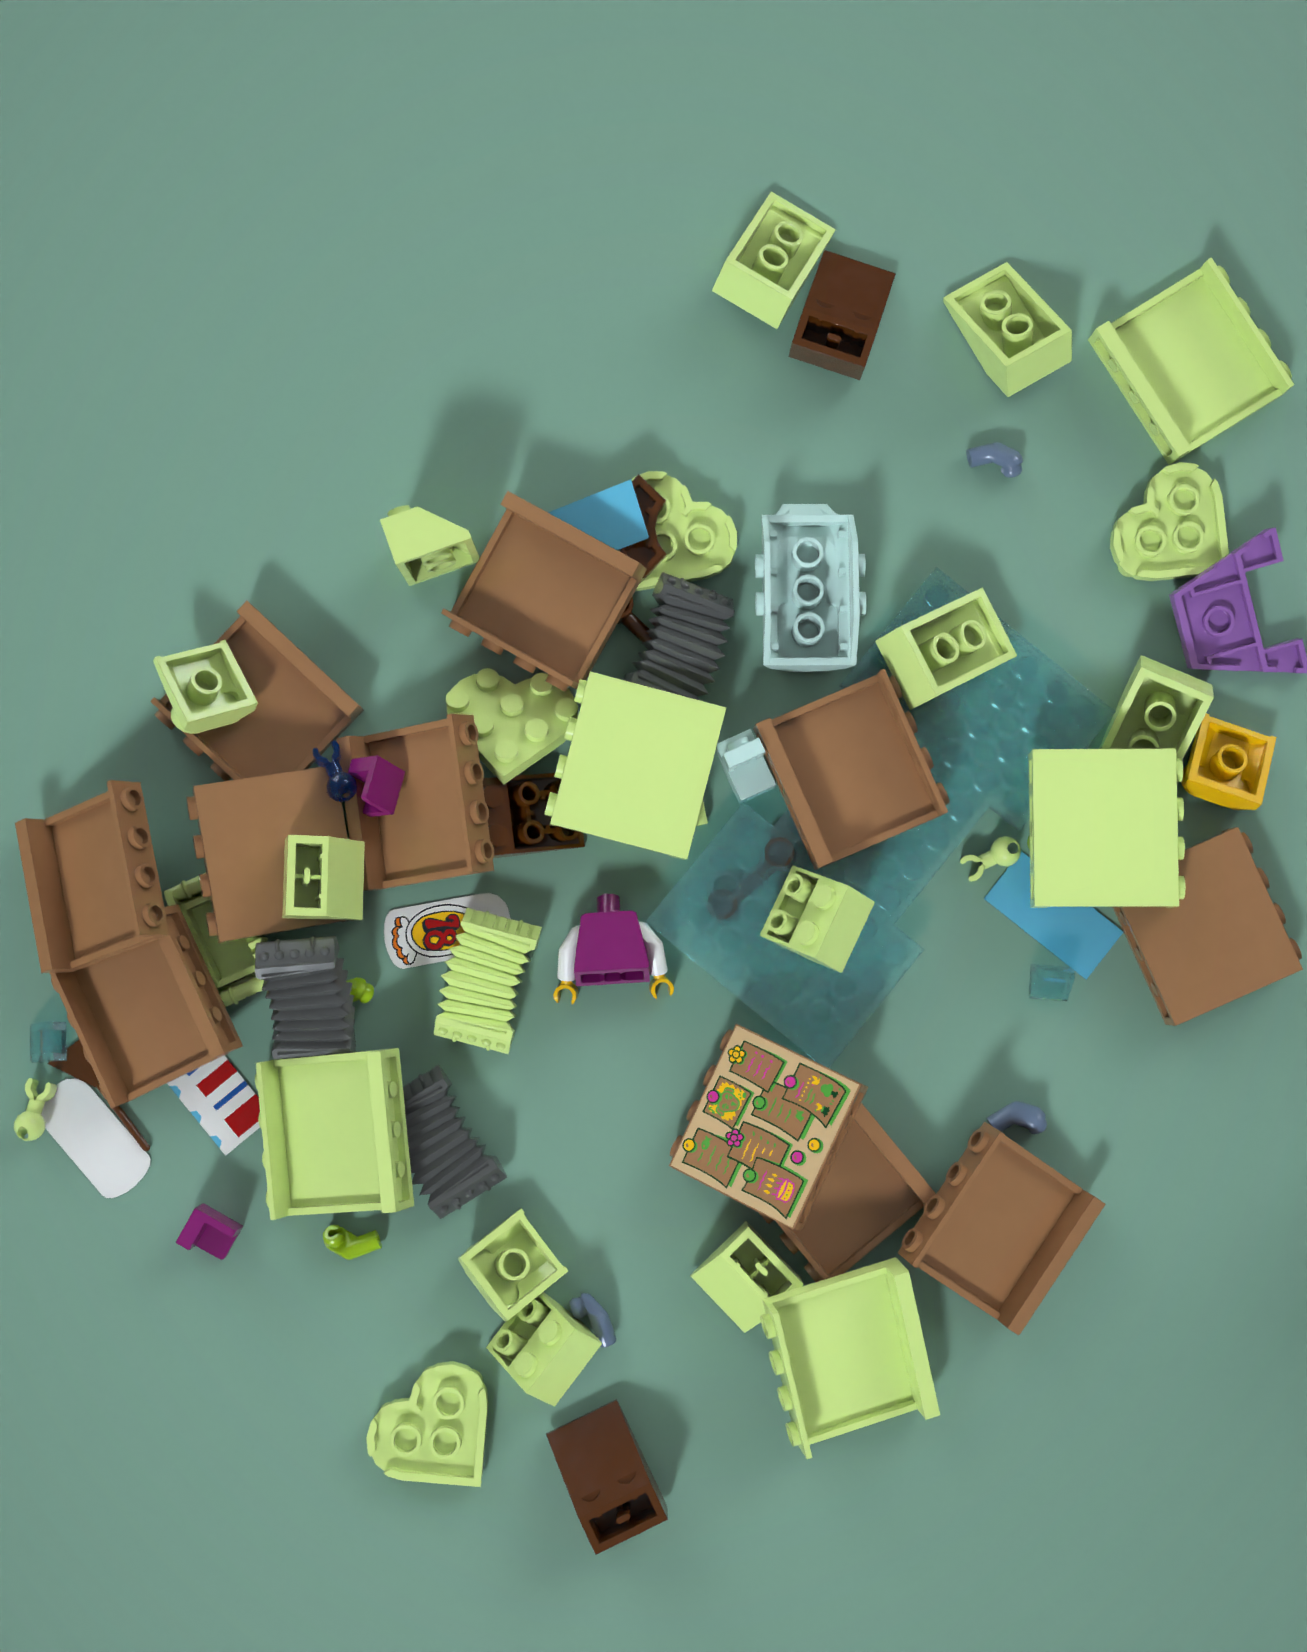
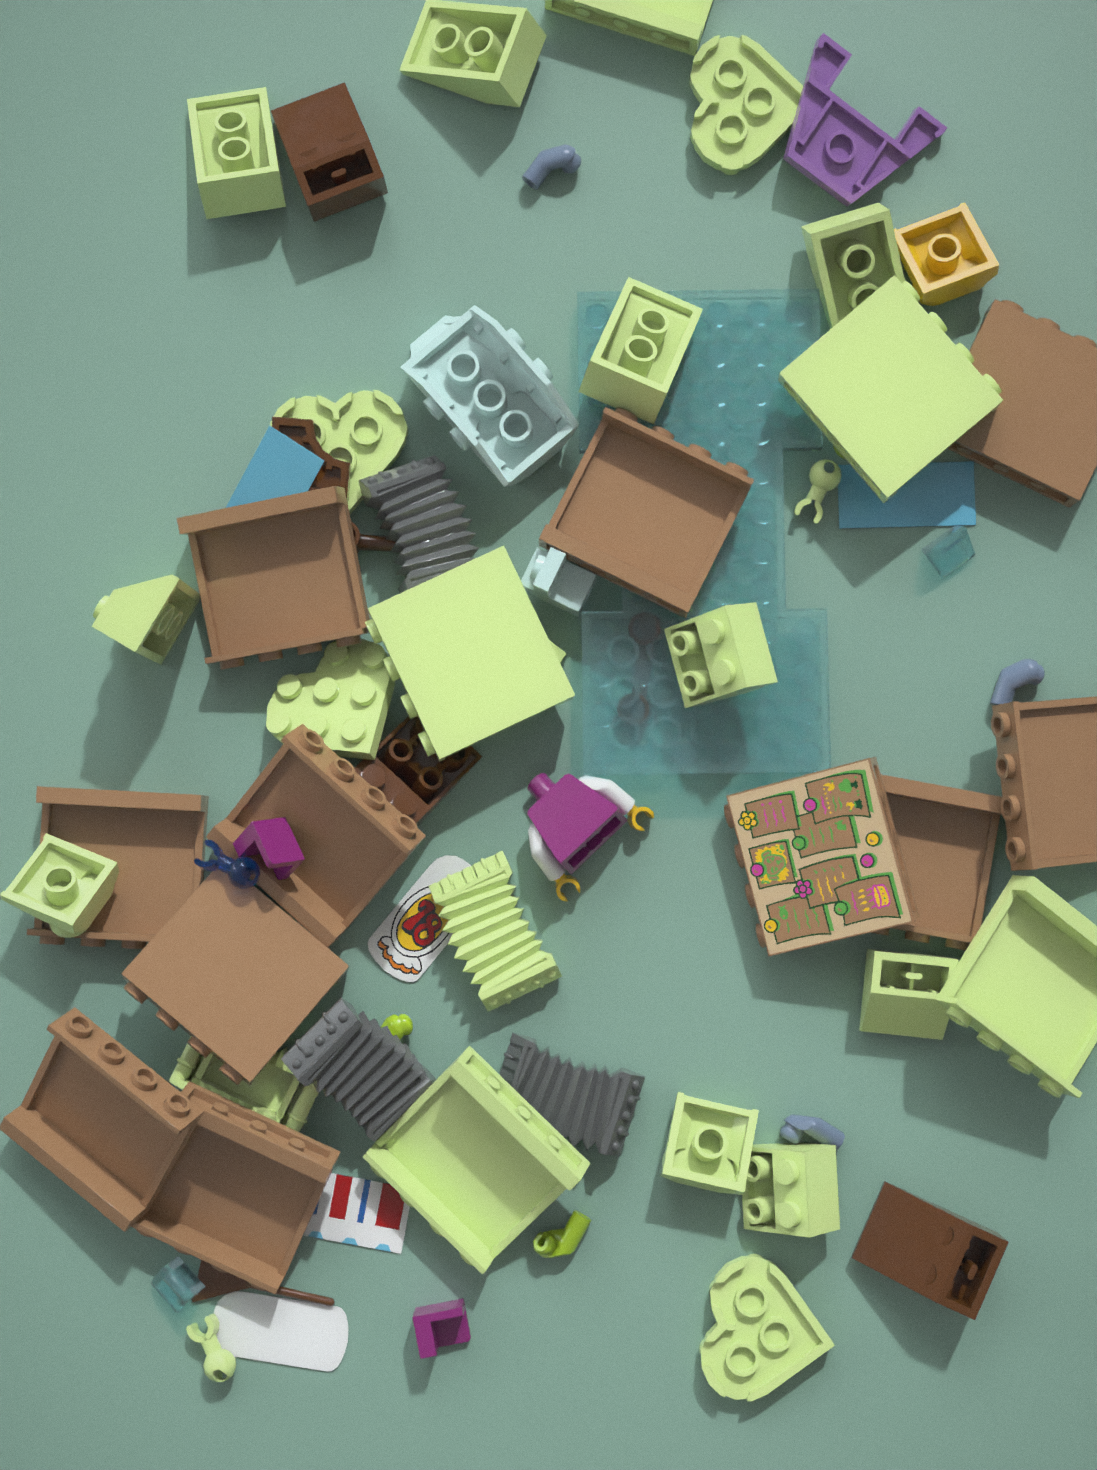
camera: 30 degrees left, 0 degrees up
(323, 878) = (291, 959): yellowish green slope -> none

